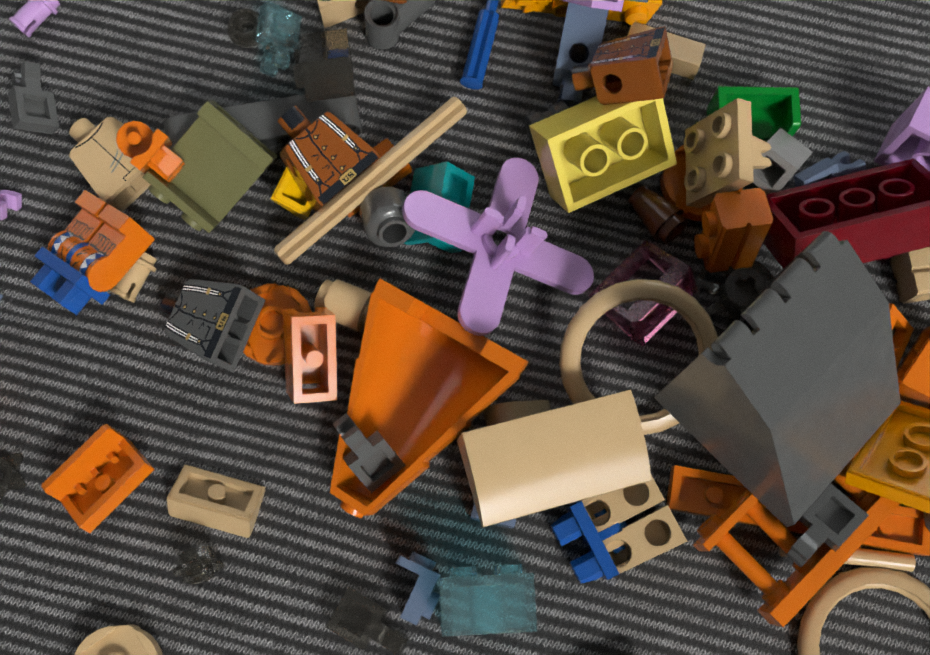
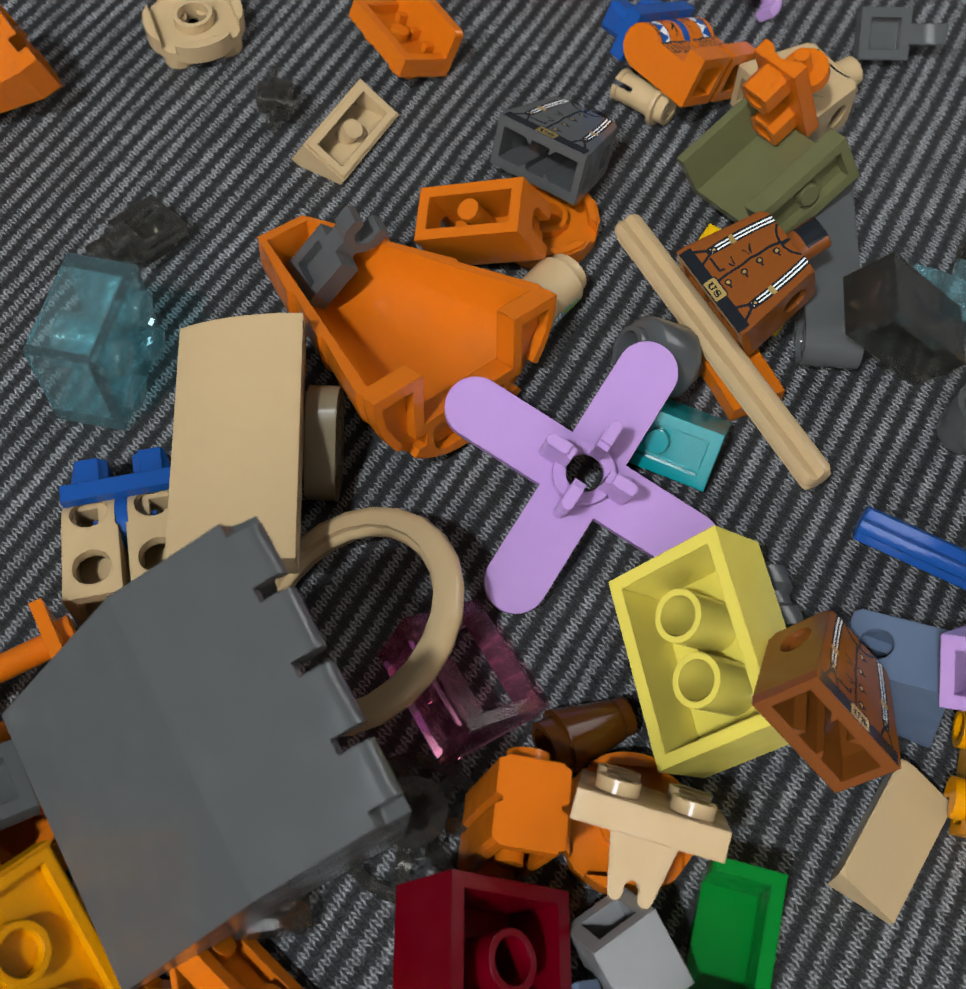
camera: 105 degrees right, 15 degrees down
(422, 598) = (175, 298): sand blue bracket -> none

